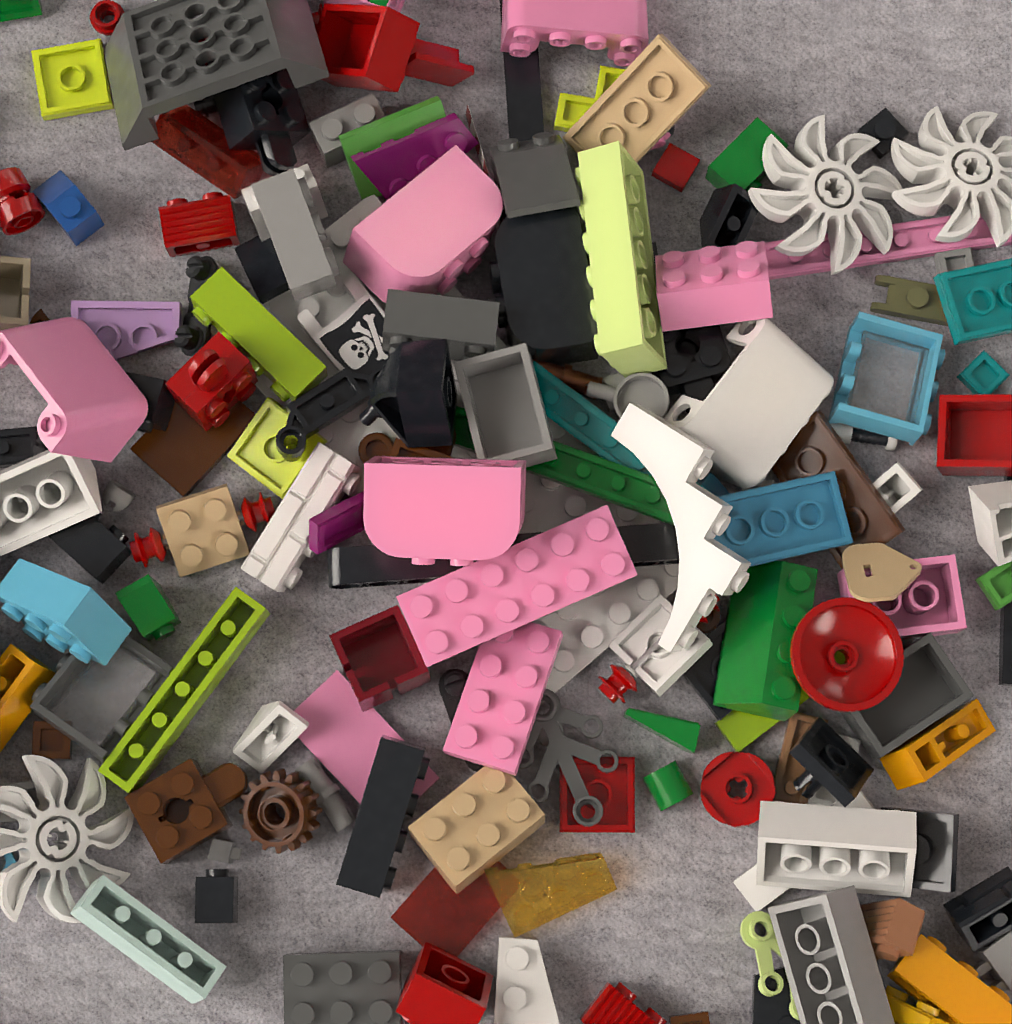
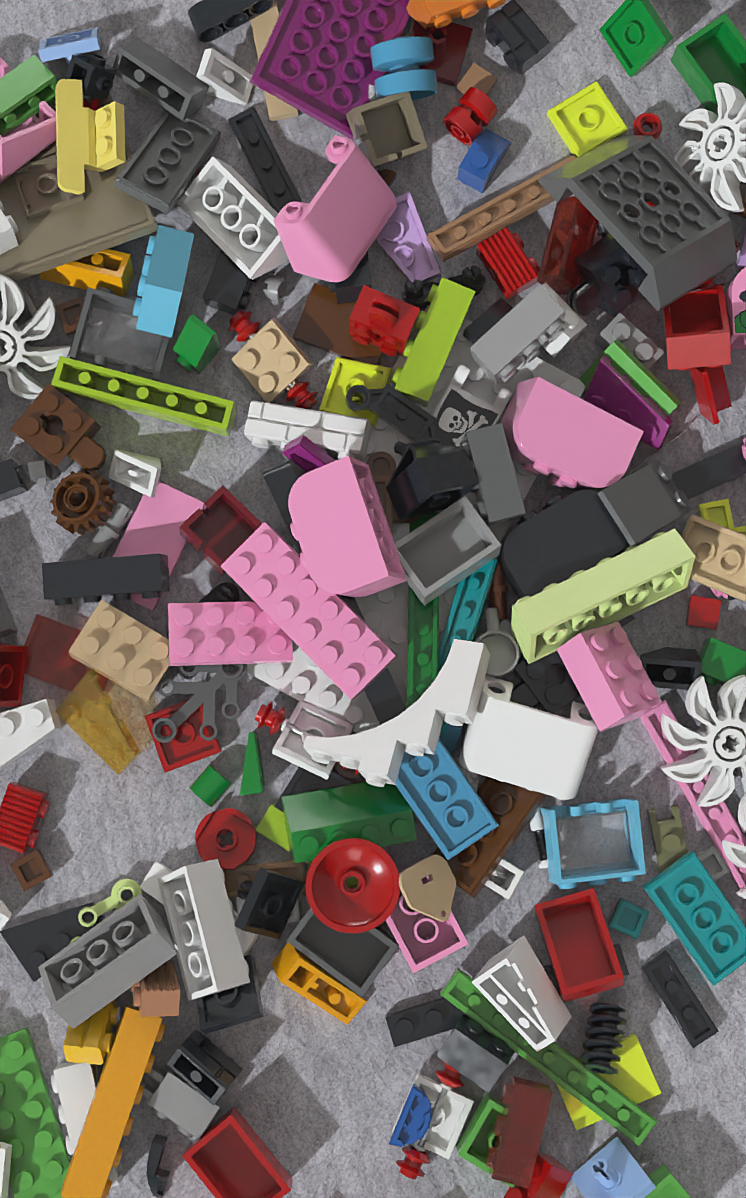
camera: 75 degrees right, 5 degrees up
(138, 215) = (492, 216): none -> medium nougat tile

